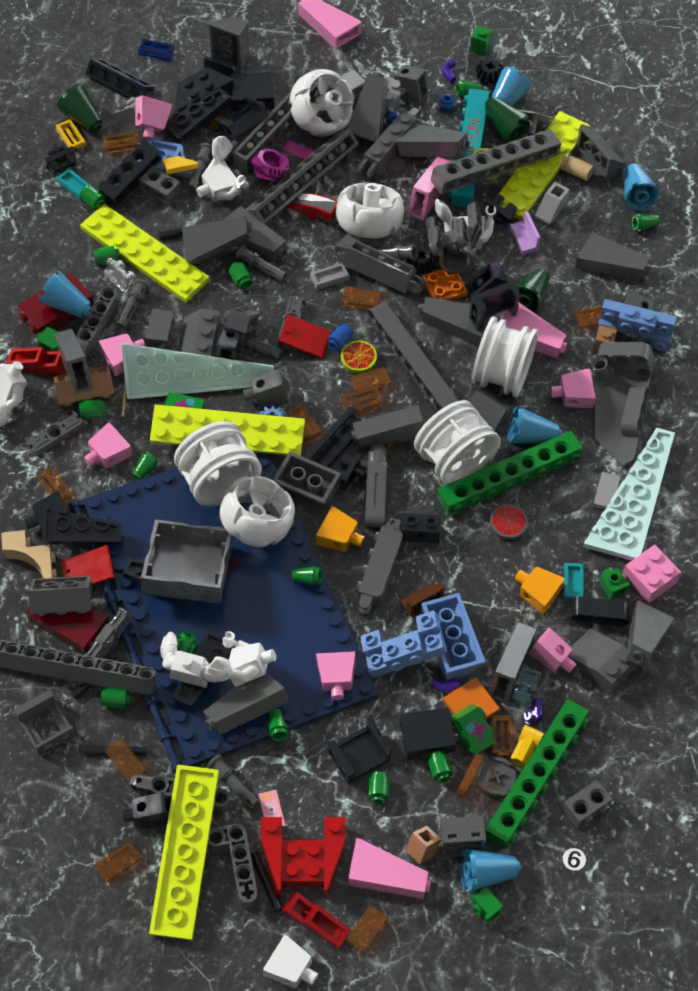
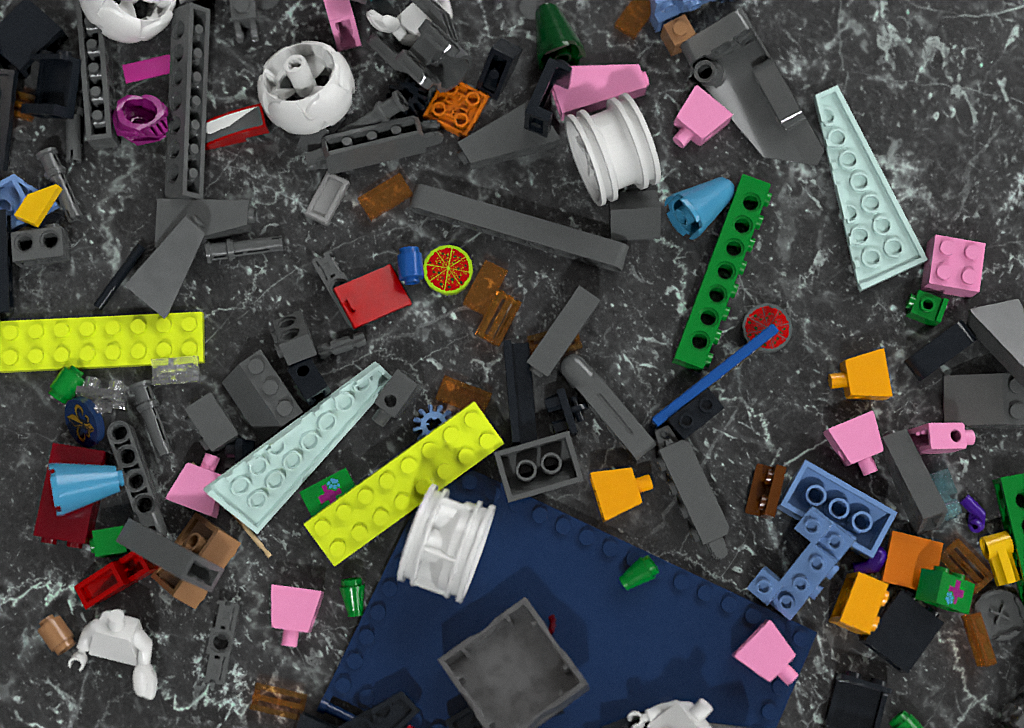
camera: 45 degrees left, 20 degrees up
(92, 409) = (234, 580): green brick -> none
(97, 276) = (83, 421): none -> dark blue tile
(167, 290) = (175, 370): none -> clear hips
(218, 178) = (96, 182): white torso -> none
(240, 275) = (234, 281): green brick -> none
(255, 526) = (526, 586): white wheel -> none
(416, 691) = (859, 603): none -> light orange brick
(440, 766) = (944, 655): green brick -> none
(457, 441) = (657, 293): white wheel -> none
(461, 517) = (715, 375): none -> blue tile
(502, 616) = (857, 441): none -> bright pink torso
(574, 581) = (882, 335): teal tile -> none
(606, 489) = (825, 208): light grey tile -> none

